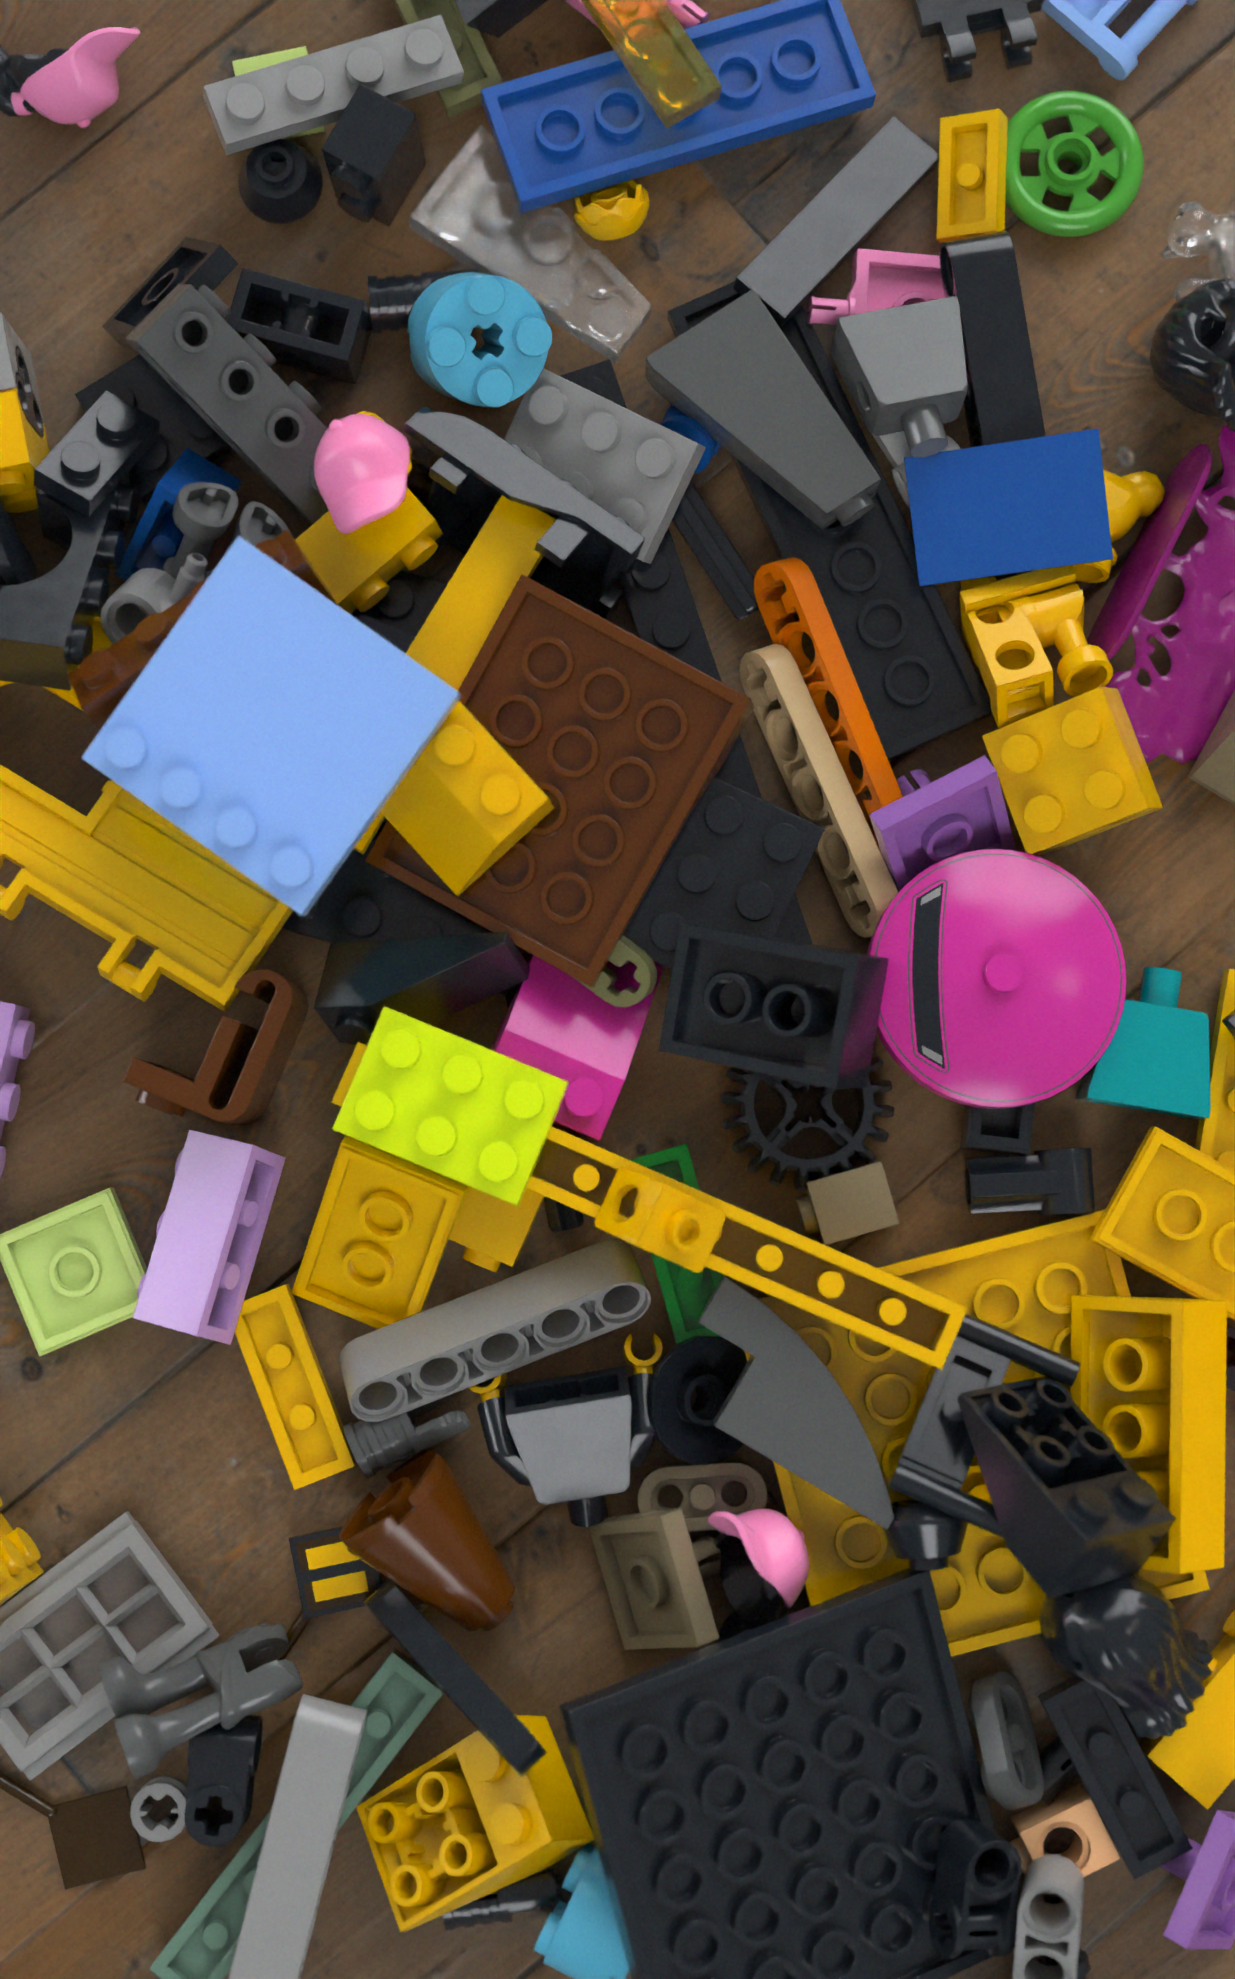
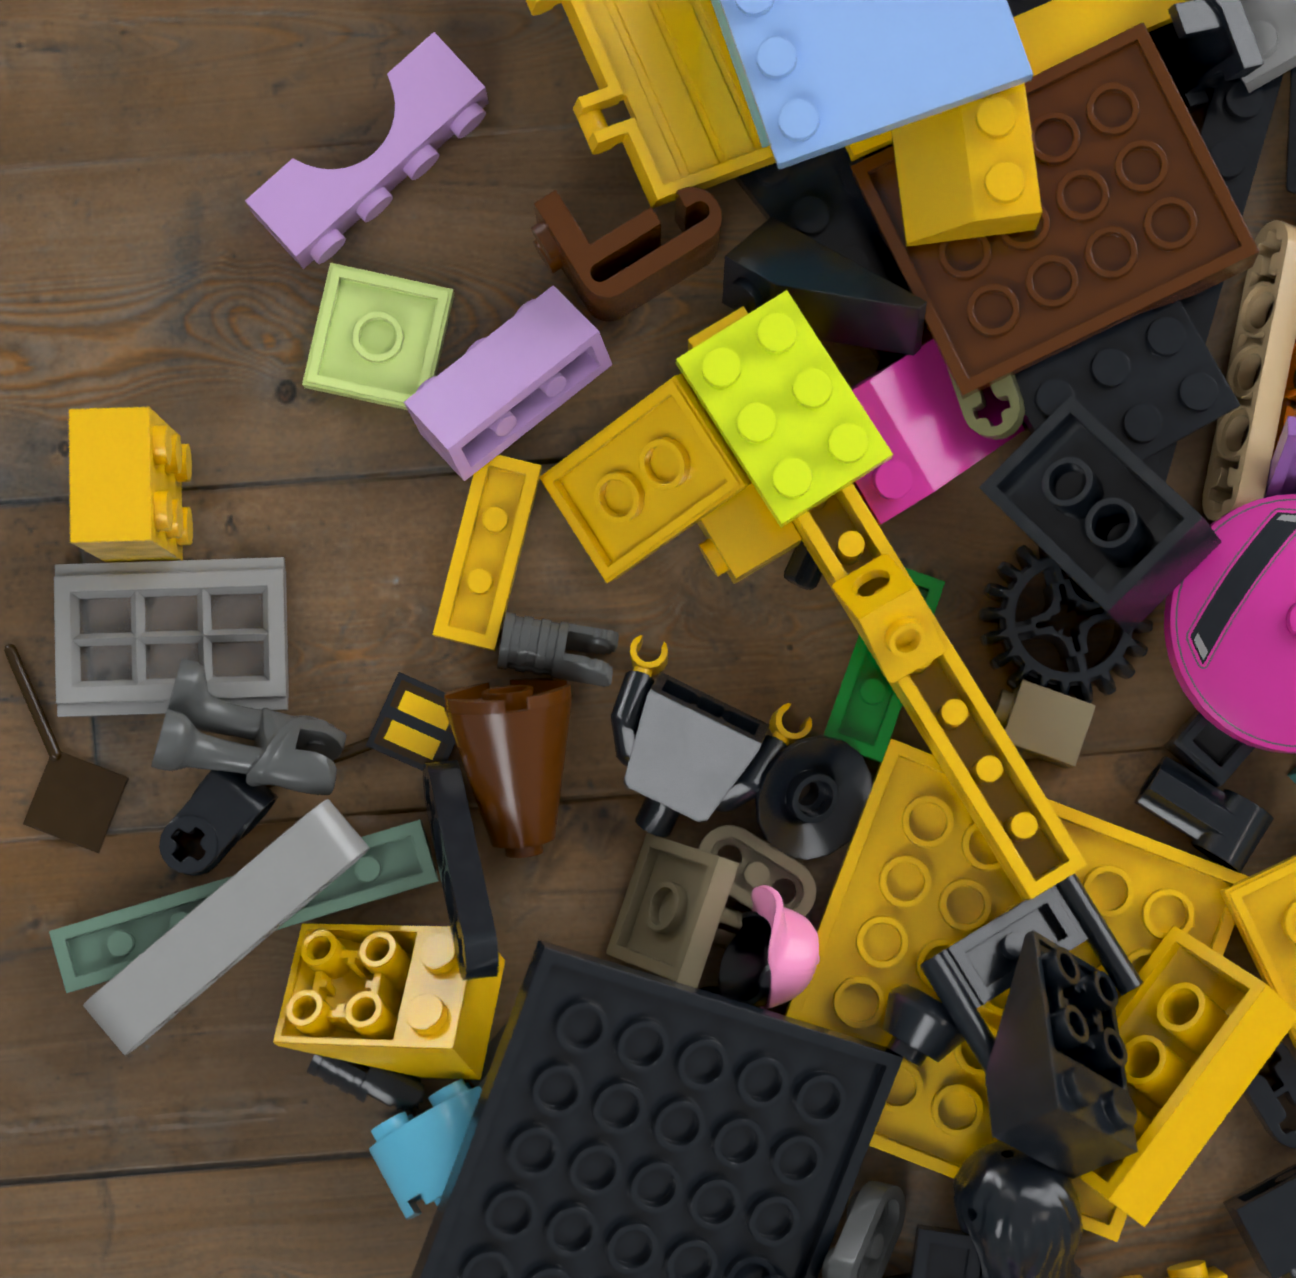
camera: 30 degrees right, 0 degrees up
(157, 1789) = (154, 796): light grey bush -> none
(493, 1330) = (683, 620): light grey beam -> none
(793, 1406) = (887, 849): dark grey slope -> none

